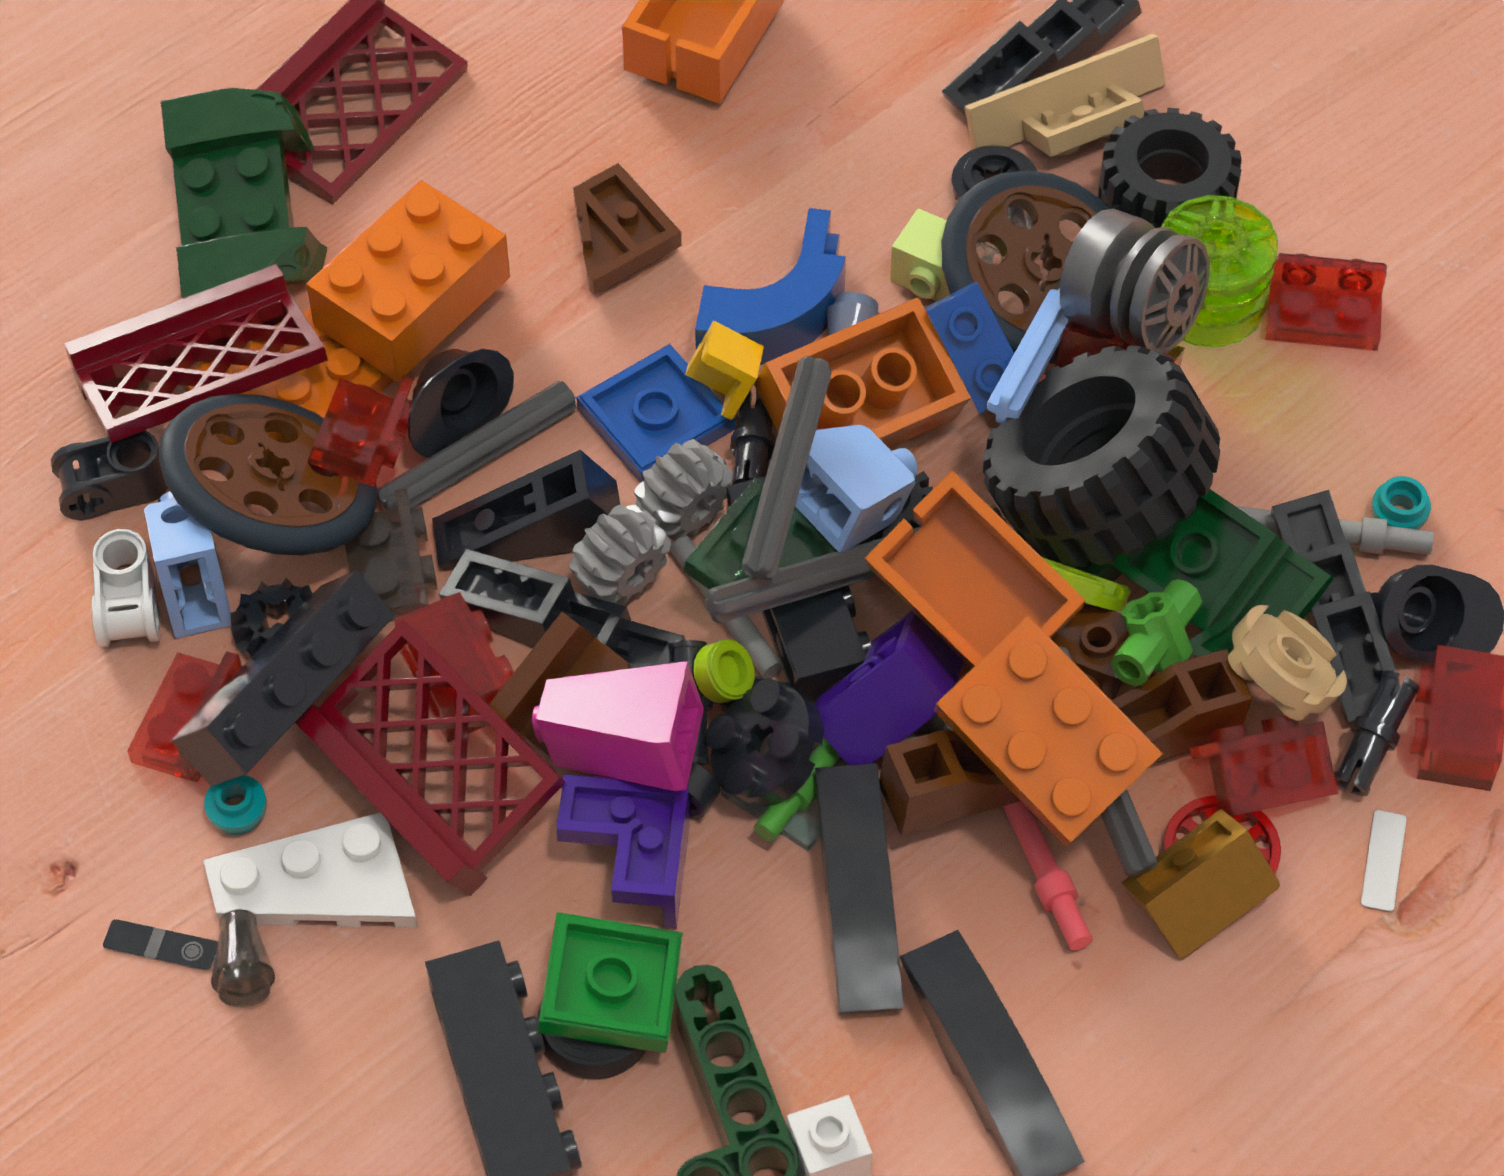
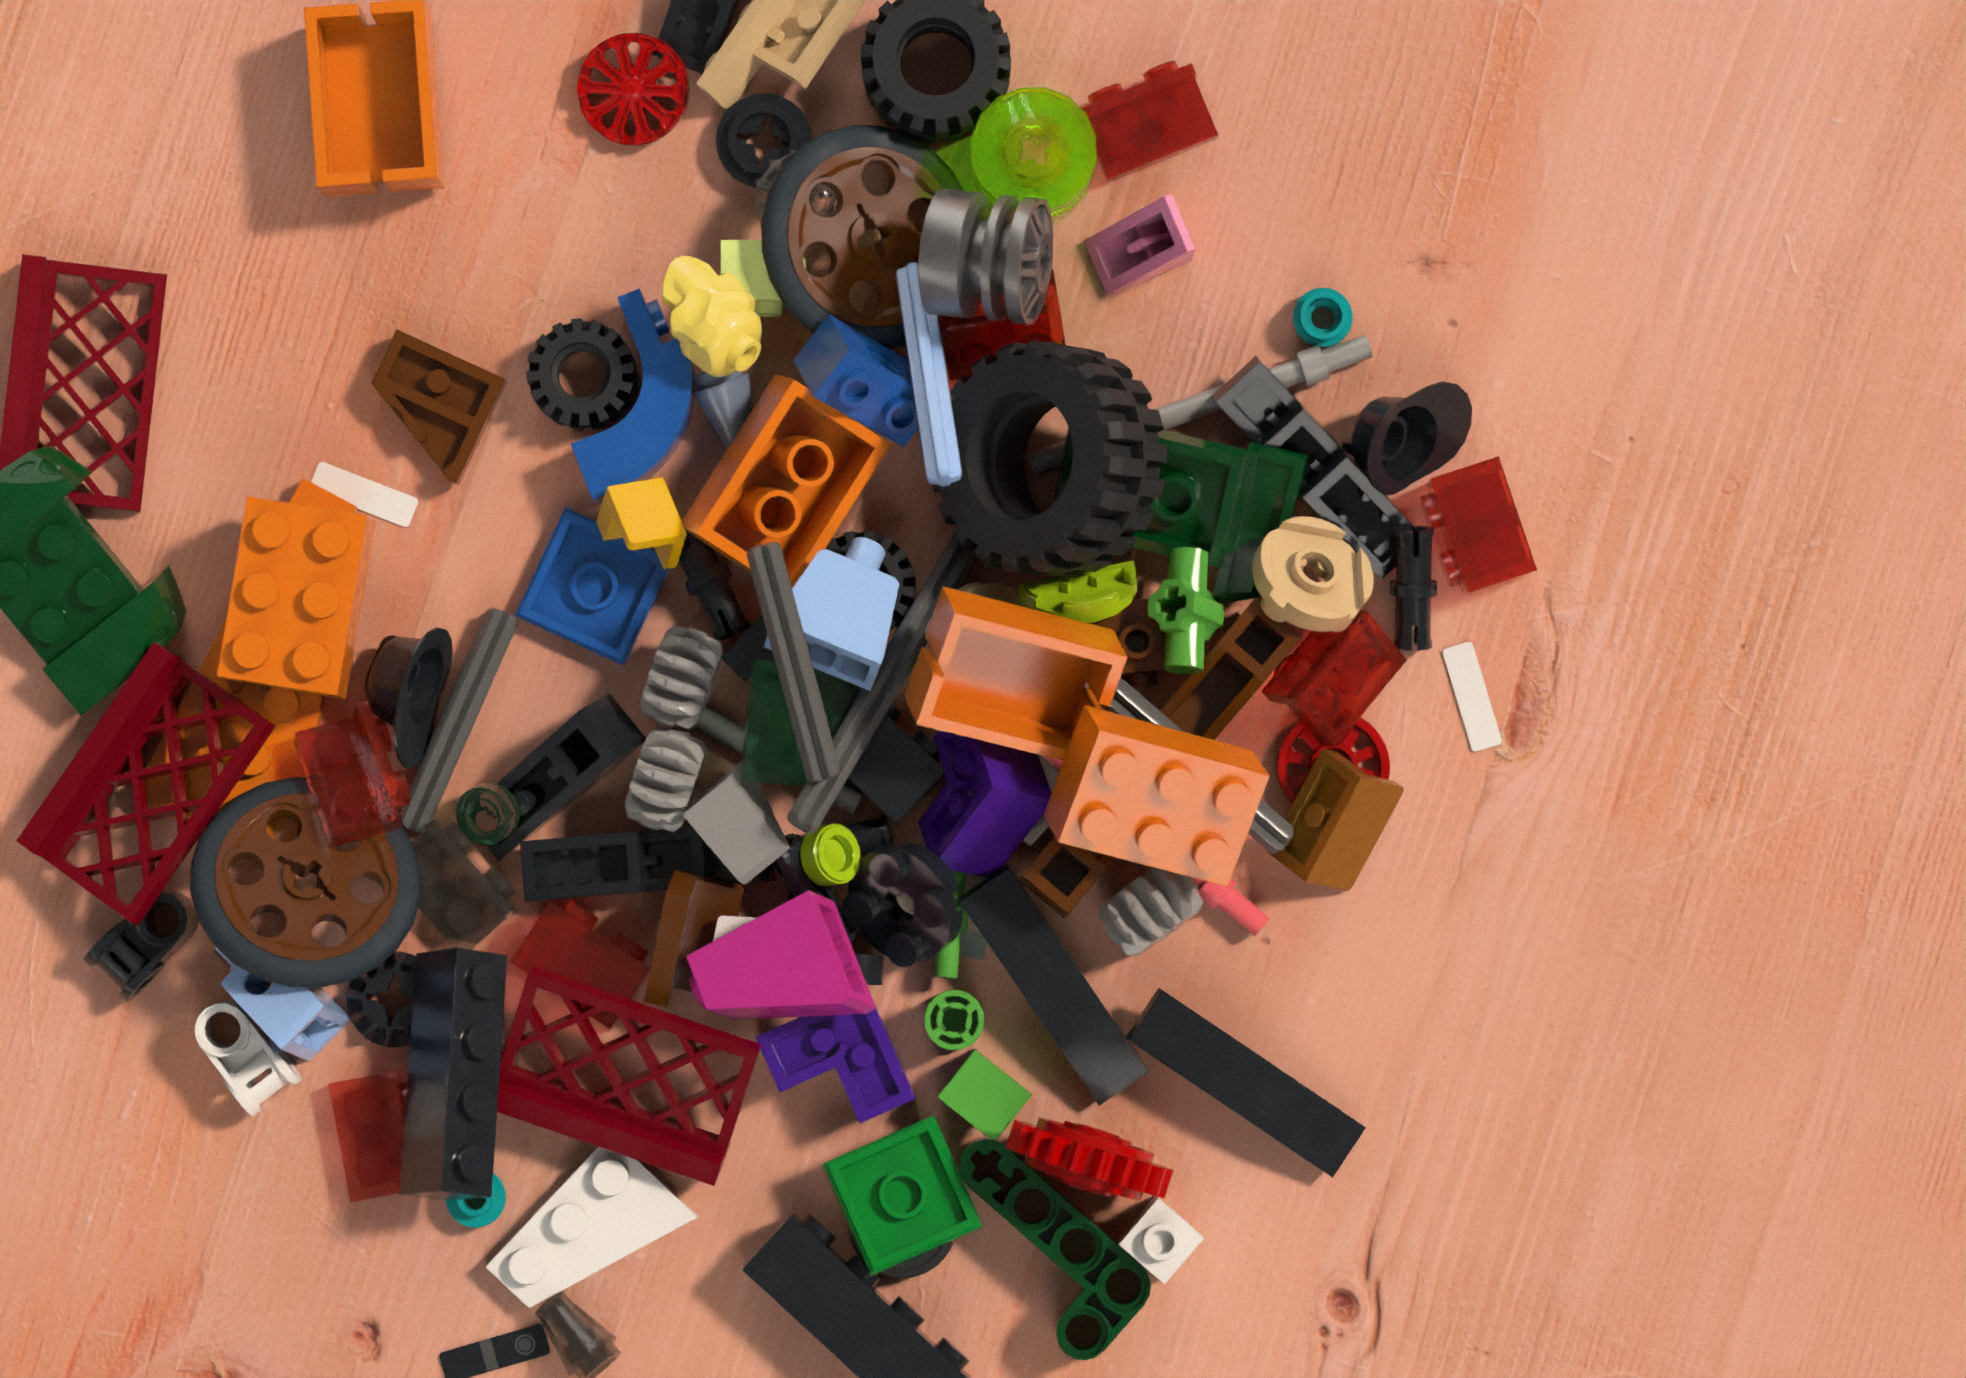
camera: 30 degrees left, 30 degrees up
(454, 516) = (487, 813): none -> clear green tile
(526, 282) = (366, 494): none -> white sticker
(658, 601) = (738, 825): none -> light grey slope
(740, 937) = (984, 1095): none -> bright green panel
(743, 237) = (572, 339): none -> black tyre
(751, 886) = (954, 1012): none -> bright green wheel
(804, 1021) = (1089, 1158): none -> red gear
(876, 243) = (711, 317): none -> light yellow head
(912, 104) = (633, 89): none -> red wheel
(986, 861) = (1149, 910): none -> light grey gear
(1273, 380) = (1141, 246): none -> bright pink slope

